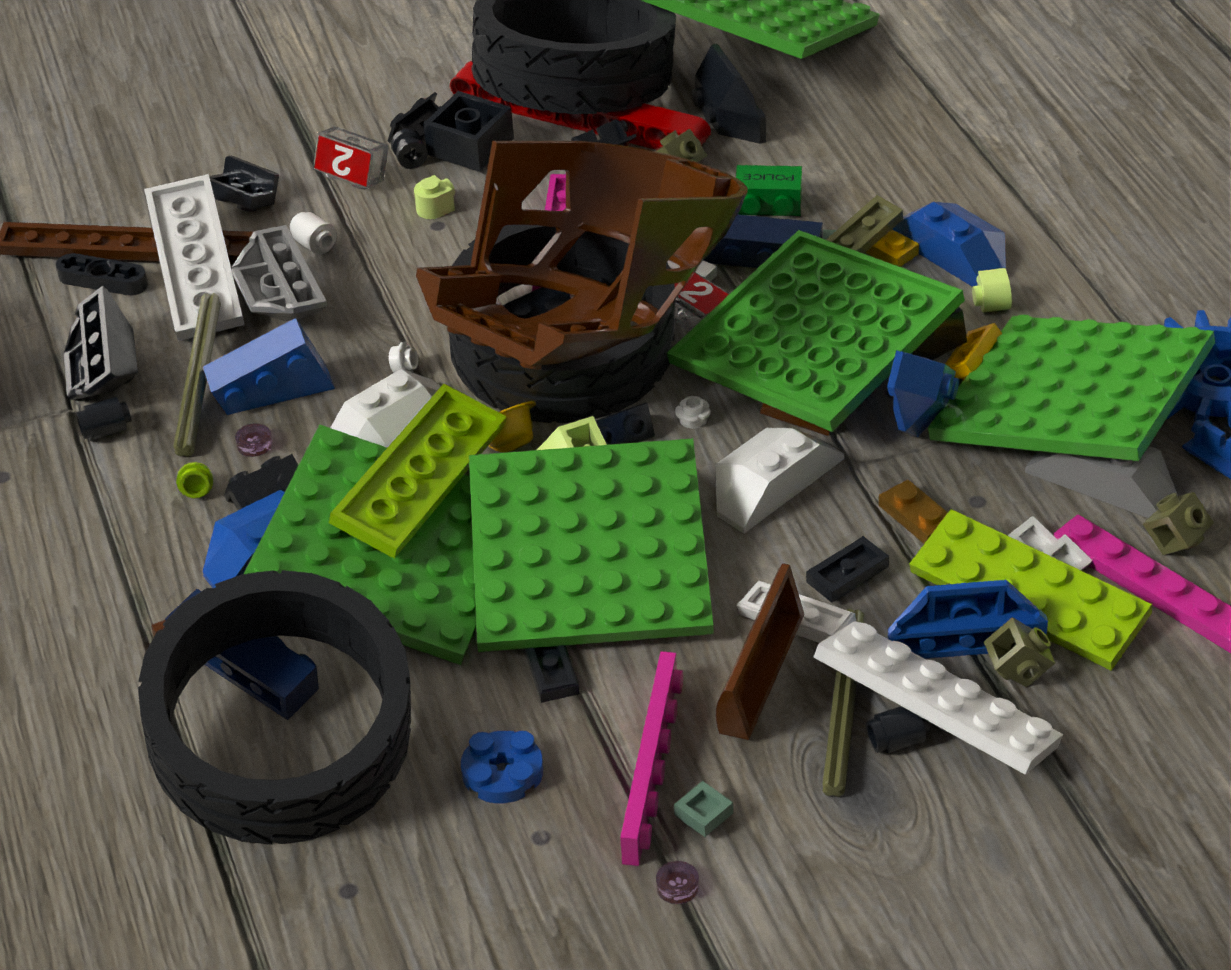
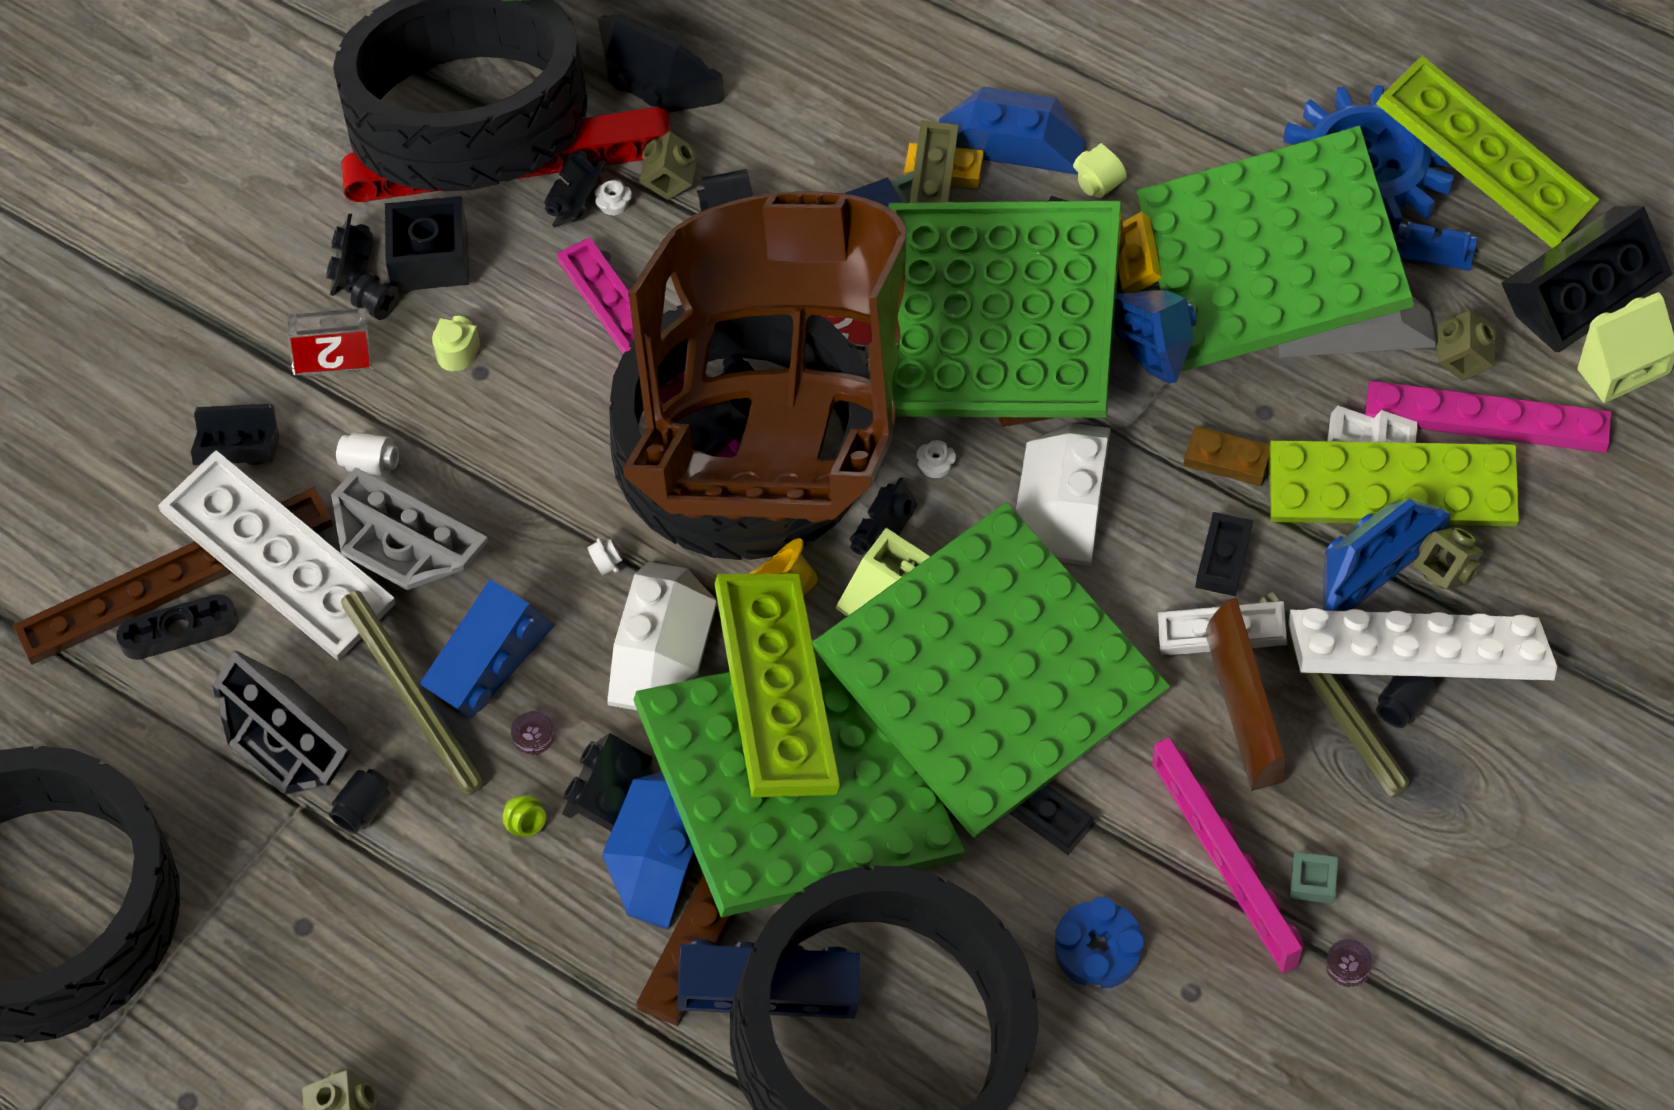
camera: 35 degrees left, 15 degrees up
(771, 190) = (790, 159): green brick -> none

